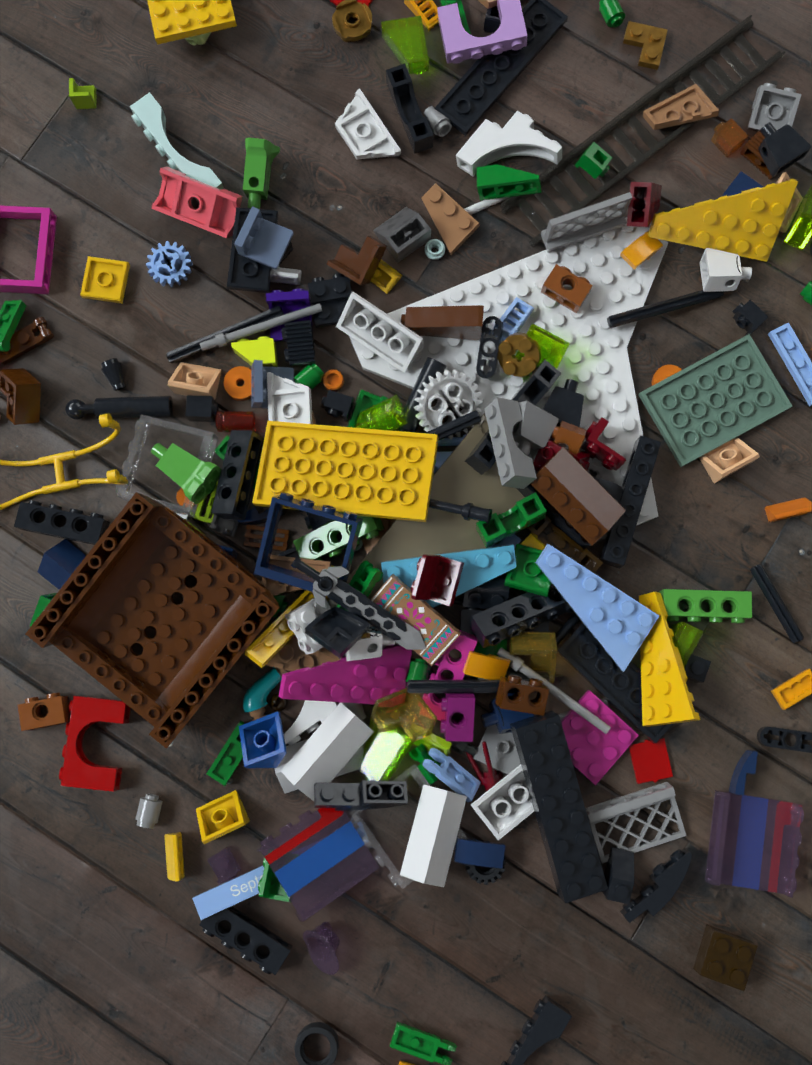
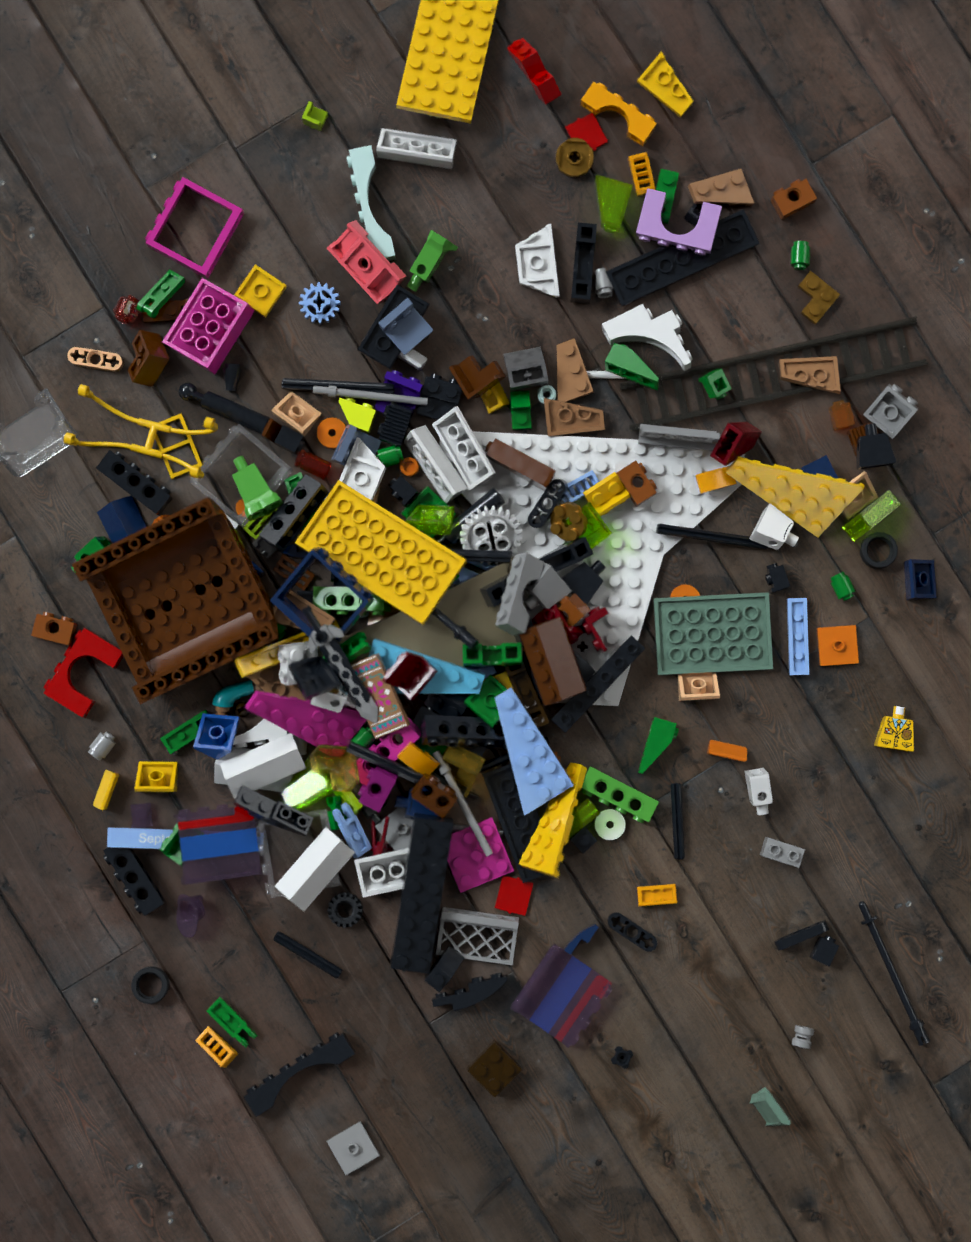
camera: 20 degrees right, 5 degrees up
(68, 335) = (208, 325): none -> dark pink slope
(100, 458) = (189, 440): none -> yellow window
(177, 408) = (271, 430): none -> reddish brown slope
(196, 82) = (416, 148): none -> white slope
(356, 364) = (435, 463): none -> white slope
(416, 275) = (520, 410): none -> green slope
(468, 930) = (307, 954): none -> black axle
(469, 259) = (571, 418): none -> medium nougat wing
(479, 853) = (343, 899): dark blue slope -> none
(543, 310) = (607, 494): none -> yellow bracket
(716, 530) = (658, 740): none -> green slope
(720, 643) = (609, 833): none -> piece

